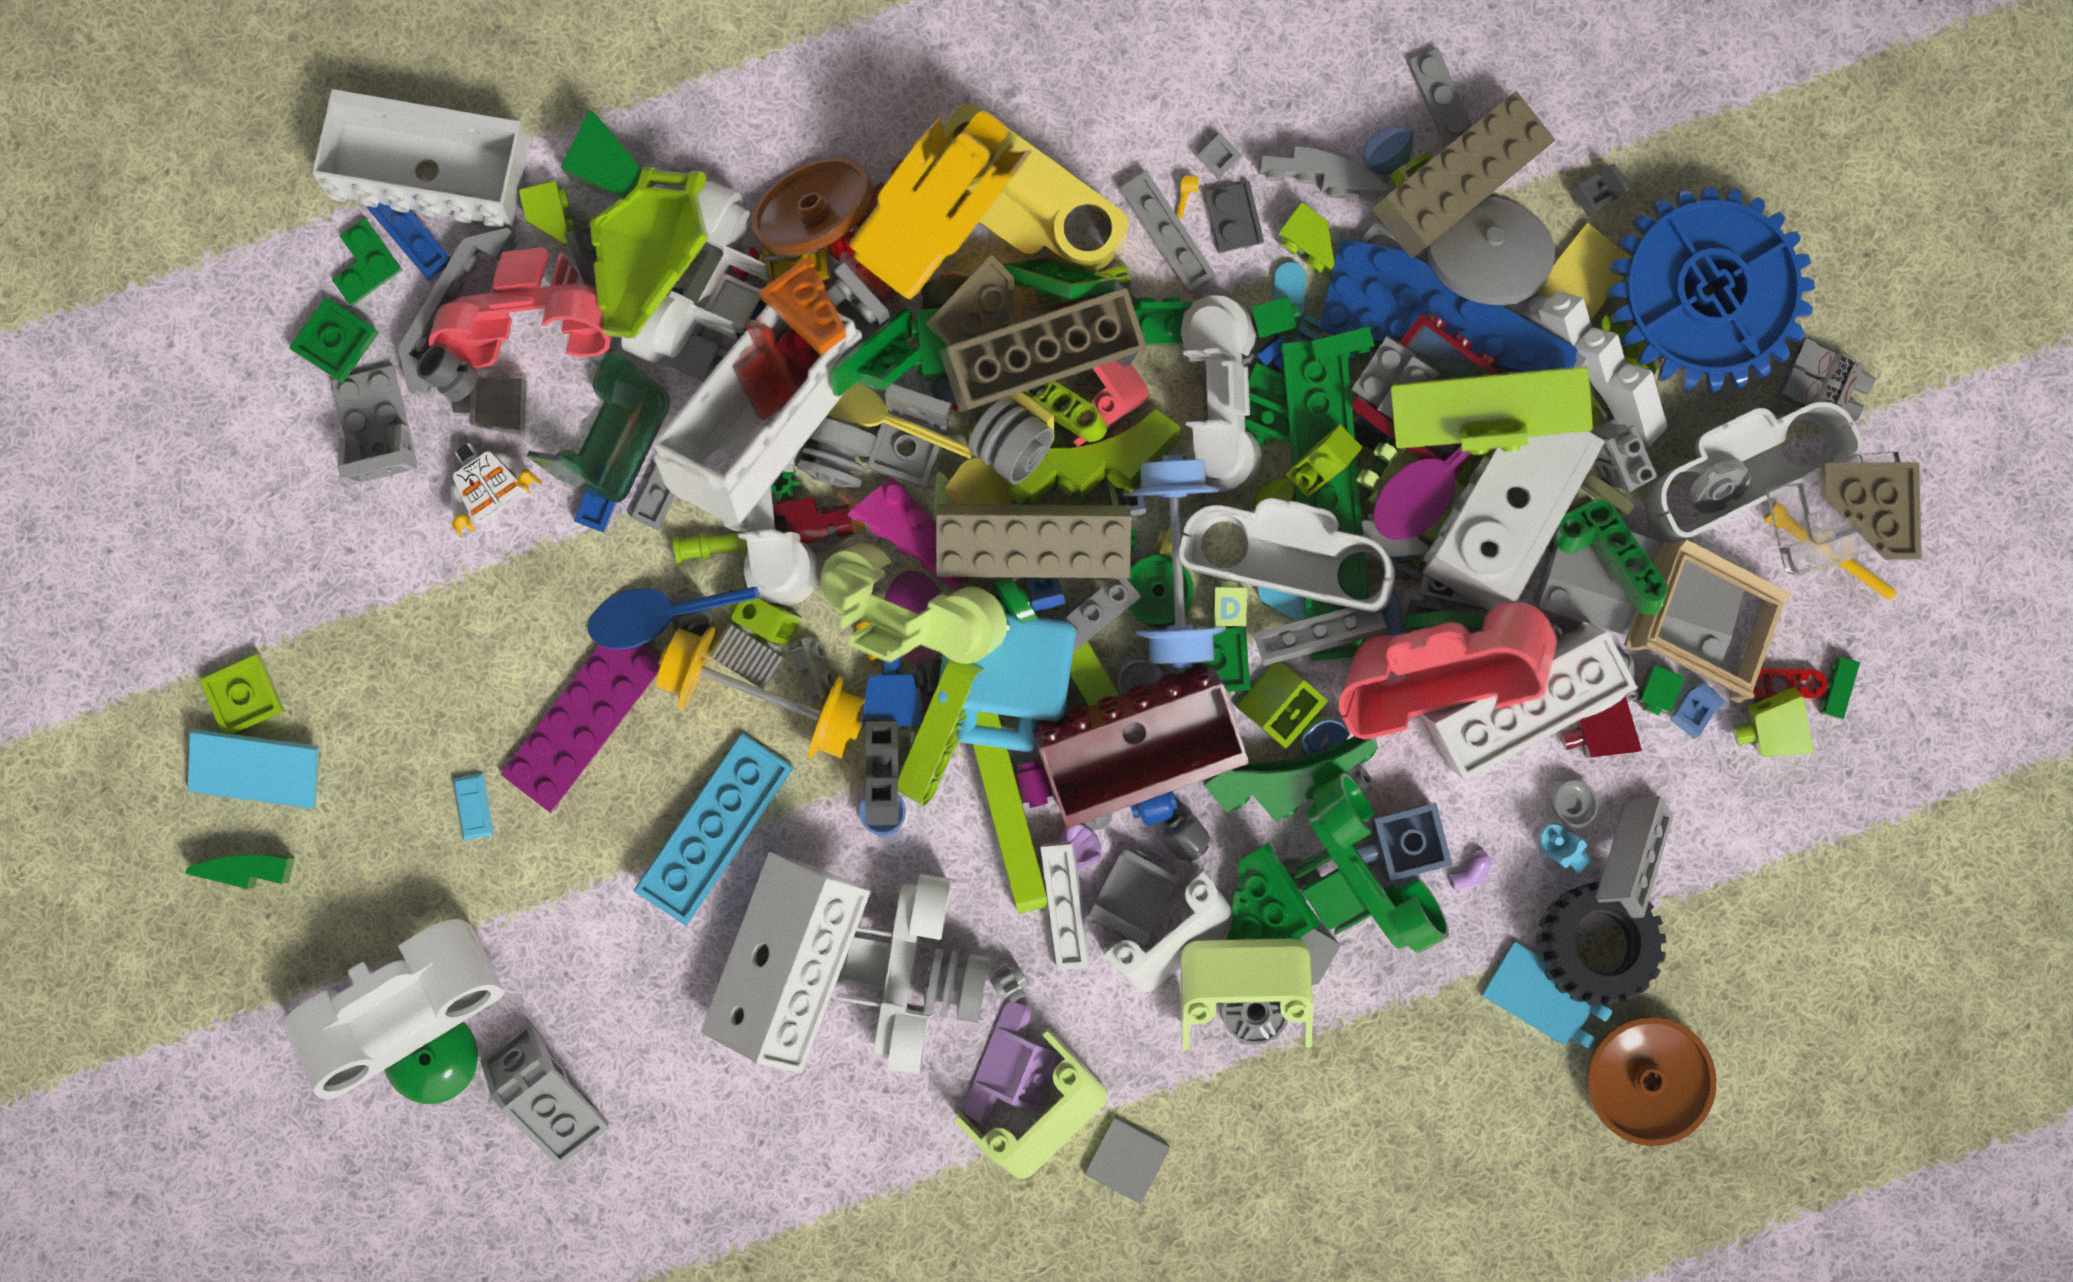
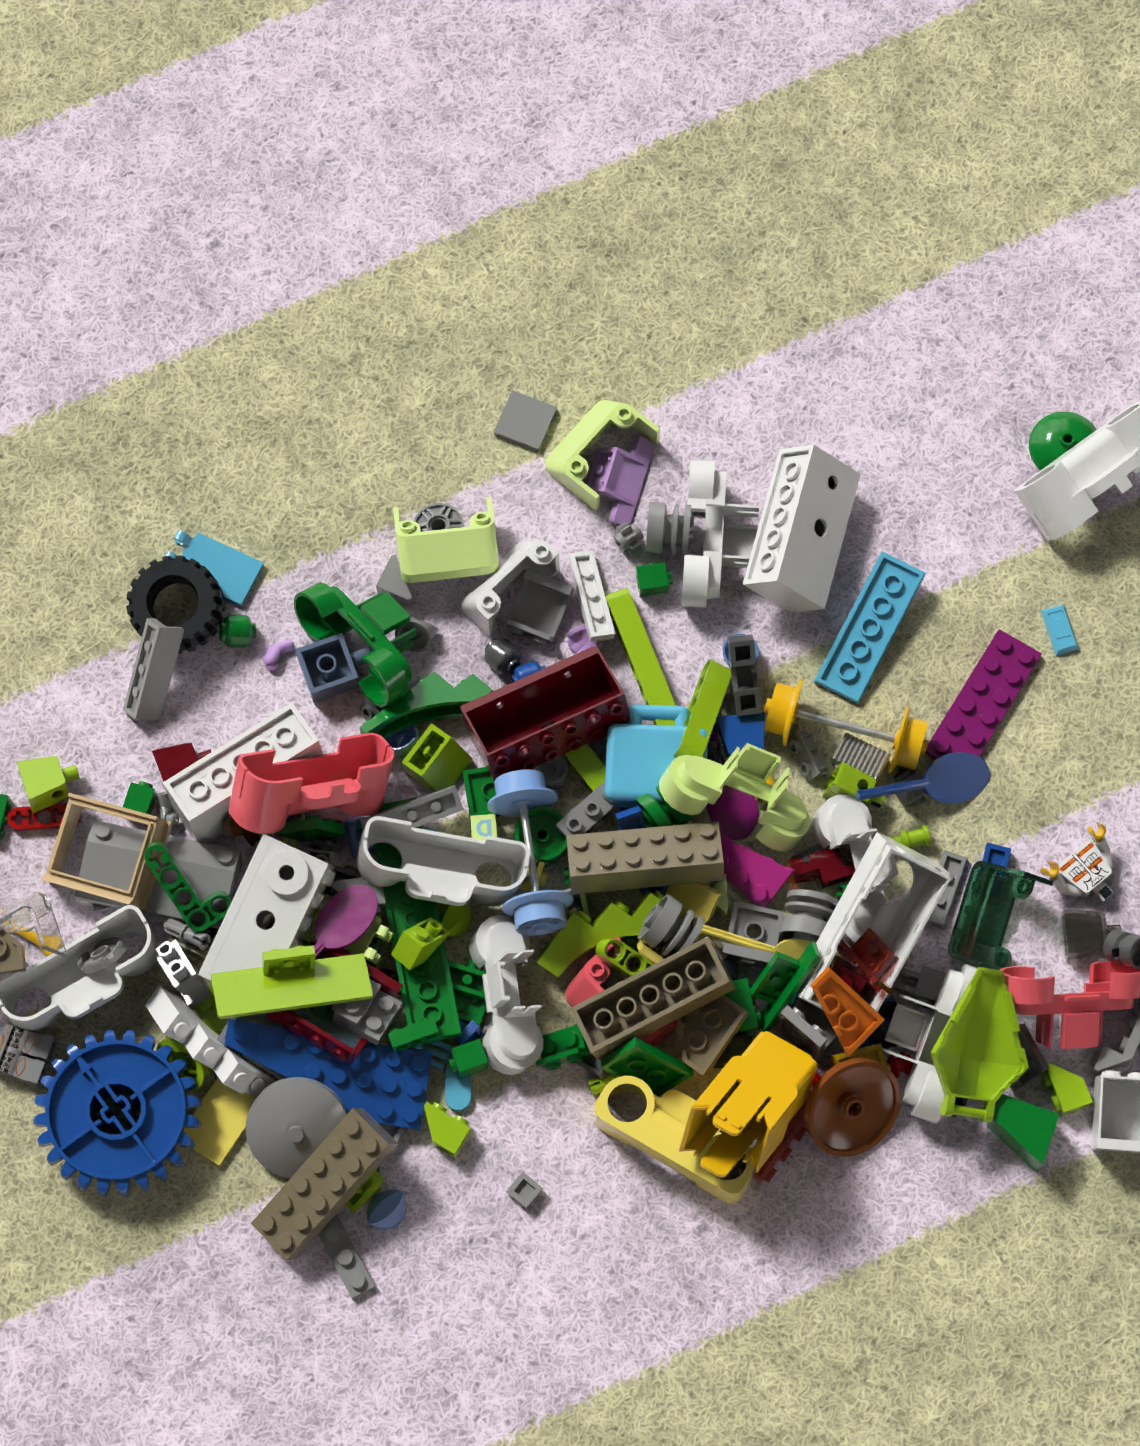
camera: 175 degrees right, 15 degrees down
(538, 1097) = (981, 423): light grey bracket -> none
(982, 922) = (653, 579): none -> green brick
(1033, 783) = (628, 683): magenta brick -> none
(1167, 232) = (561, 1124): light grey plate -> none
(1188, 184) = (547, 1166): yellow hand -> none
(1234, 217) = (508, 1143): dark grey plate -> none
(1268, 901) = (435, 608): green plate -> none
(1336, 173) = (427, 1184): light grey slope -> none
(1522, 904) = (237, 631): none -> green head
(1563, 847) = (208, 673): medium azure hips -> none
(1574, 803) = (202, 710): light grey piece -> none
(1600, 189) = (210, 1191): dark grey bracket -> none
(1601, 492) = (186, 934): none -> light grey axle
(1651, 1081) = (130, 511): dark orange dish -> none
(1697, 709) = (110, 787): medium blue bracket -> none

